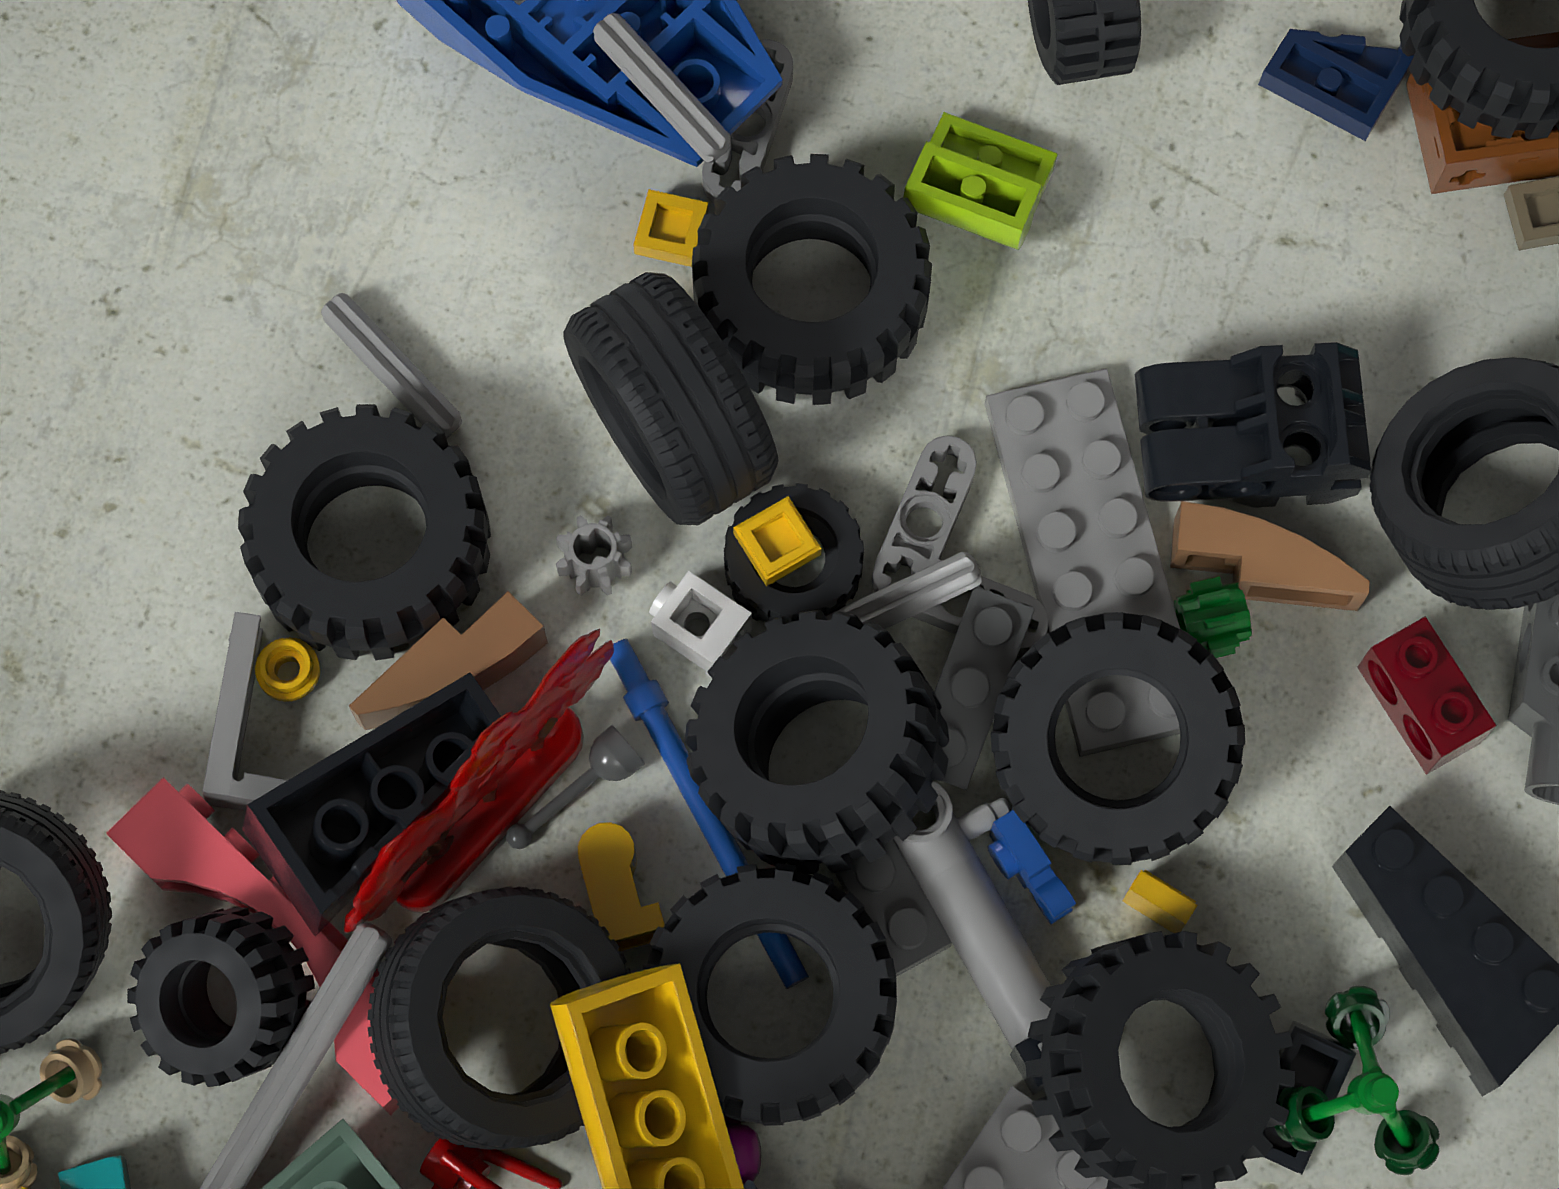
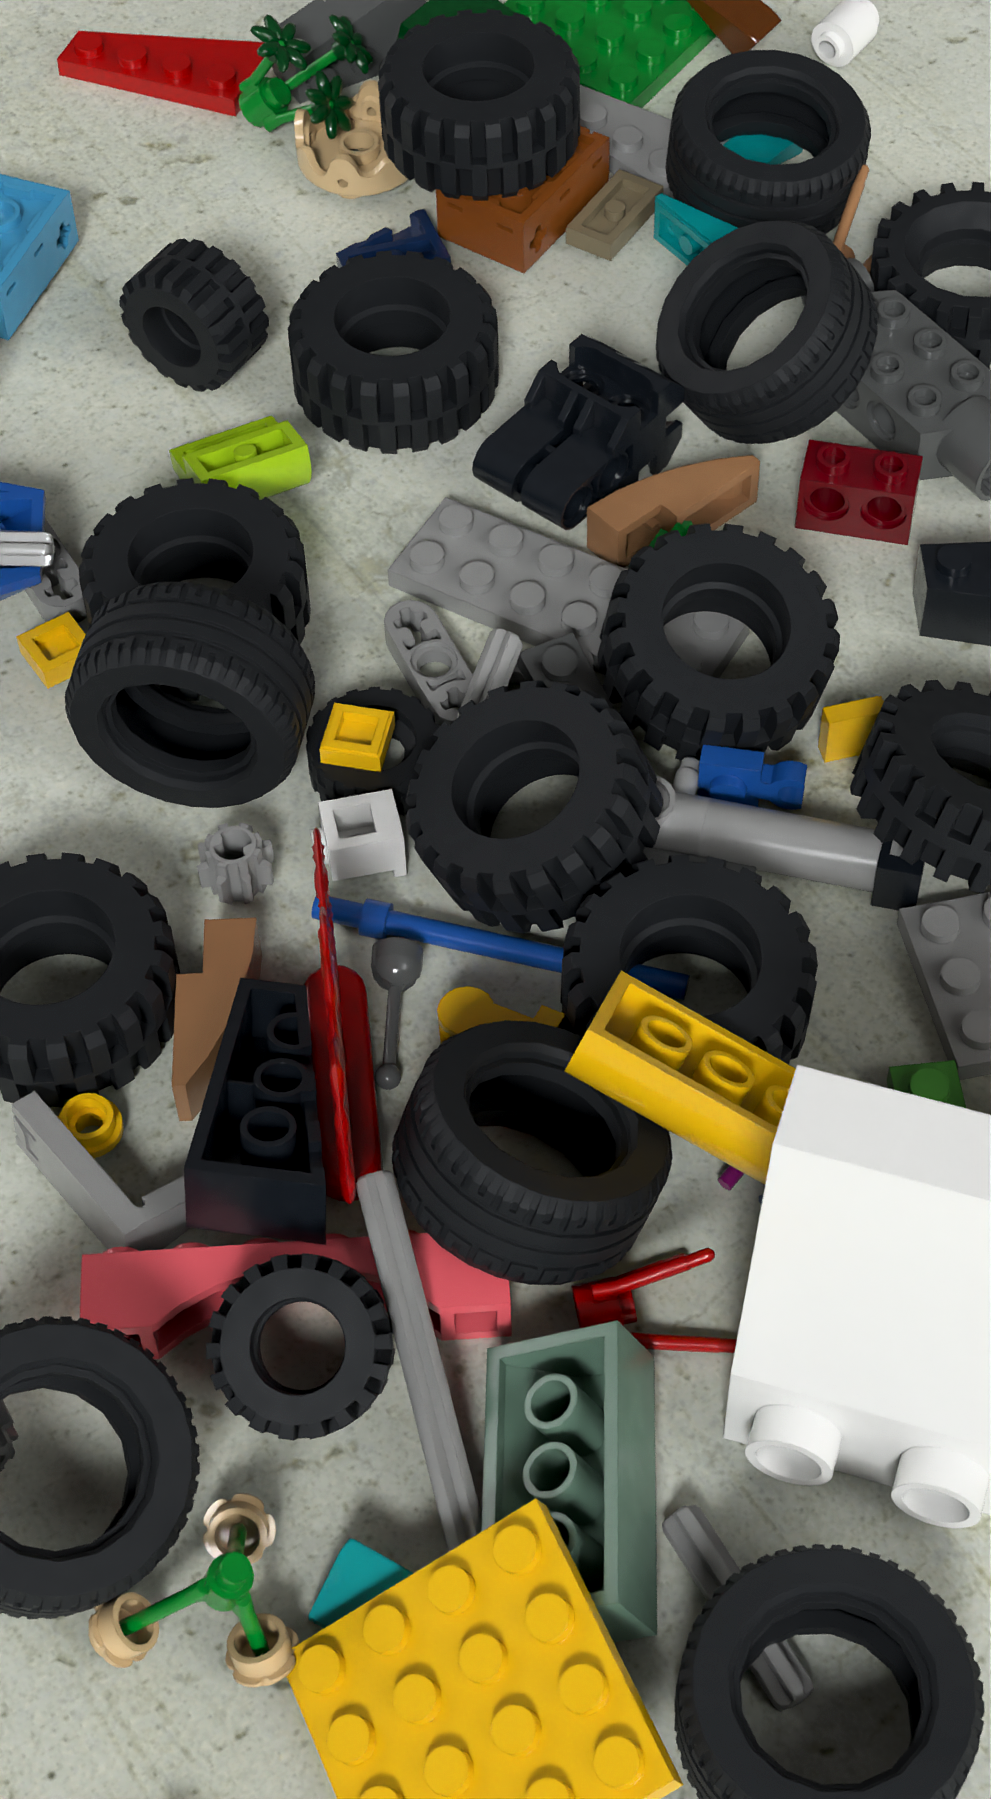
camera: 45 degrees left, 20 degrees down
(1225, 116) = (399, 397): none -> black tyre

